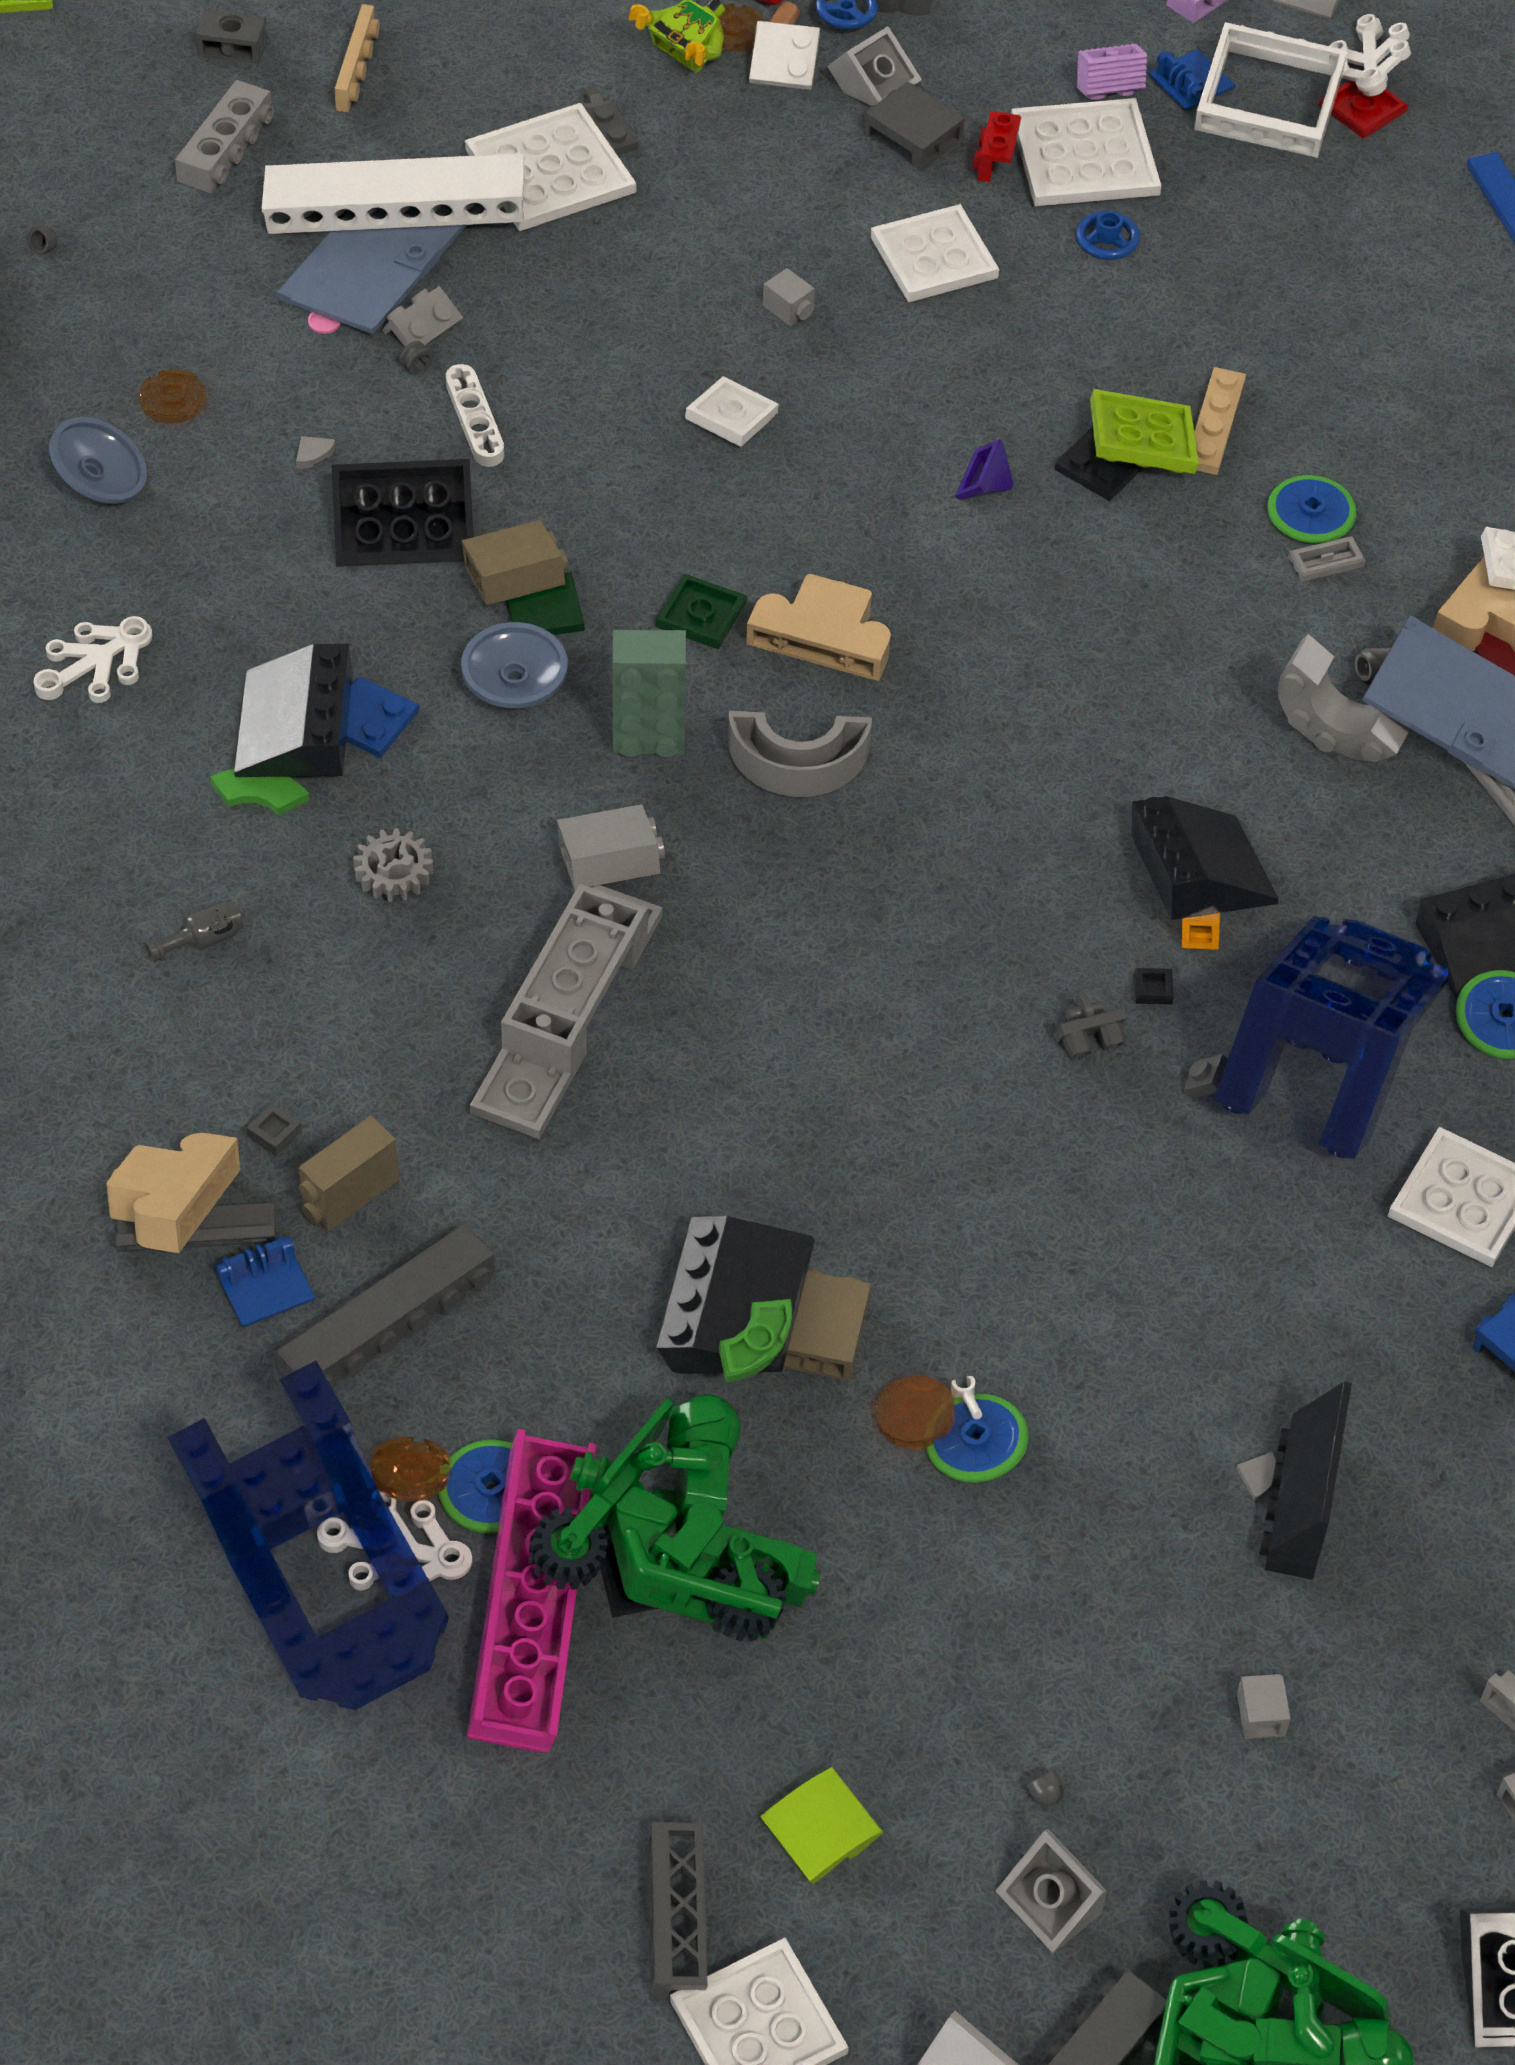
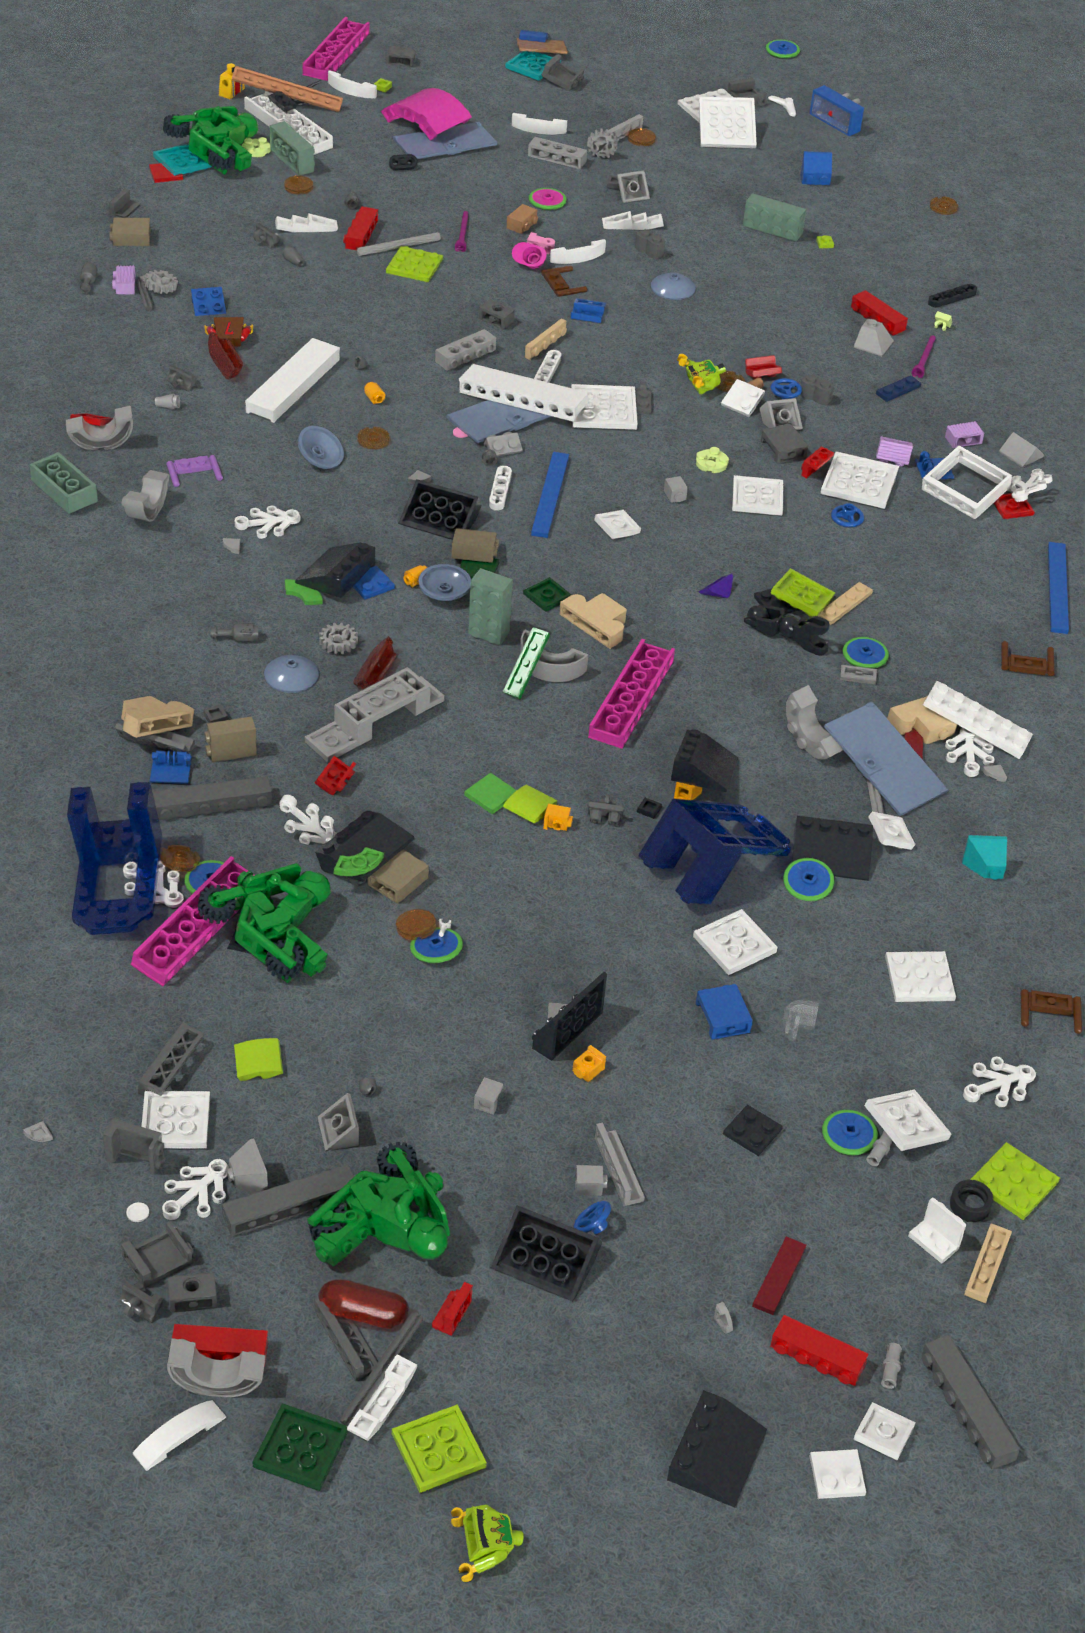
camera: 25 degrees right, 10 degrees down
(60, 740) = (232, 545): none -> light grey tile
(115, 296) = (374, 392): none -> light orange brick
(352, 989) = (291, 673): none -> sand blue dish
(399, 122) = (549, 370): none -> white beam
(445, 671) = (411, 576): none -> light orange brick
(497, 895) = (376, 664): none -> clear red brick
(566, 1280) = (288, 805): none -> white plant
(572, 395) = (550, 495): none -> blue tile
(578, 1164) = (334, 775): none -> red bracket
(610, 846) = (437, 663): light grey brick -> none
(775, 781) = (526, 663): none -> tile
(807, 194) = (705, 457): none -> yellowish green plate
(868, 1076) = (490, 793): none -> bright green tile
(951, 1069) = (529, 803): none -> lime slope
(982, 764) = (631, 694): none -> dark pink tile
(1019, 1078) = (557, 817): none -> light orange brick
(1198, 511) = (806, 632): none -> black piece
(1386, 1559) = (589, 1064): none -> light orange brick

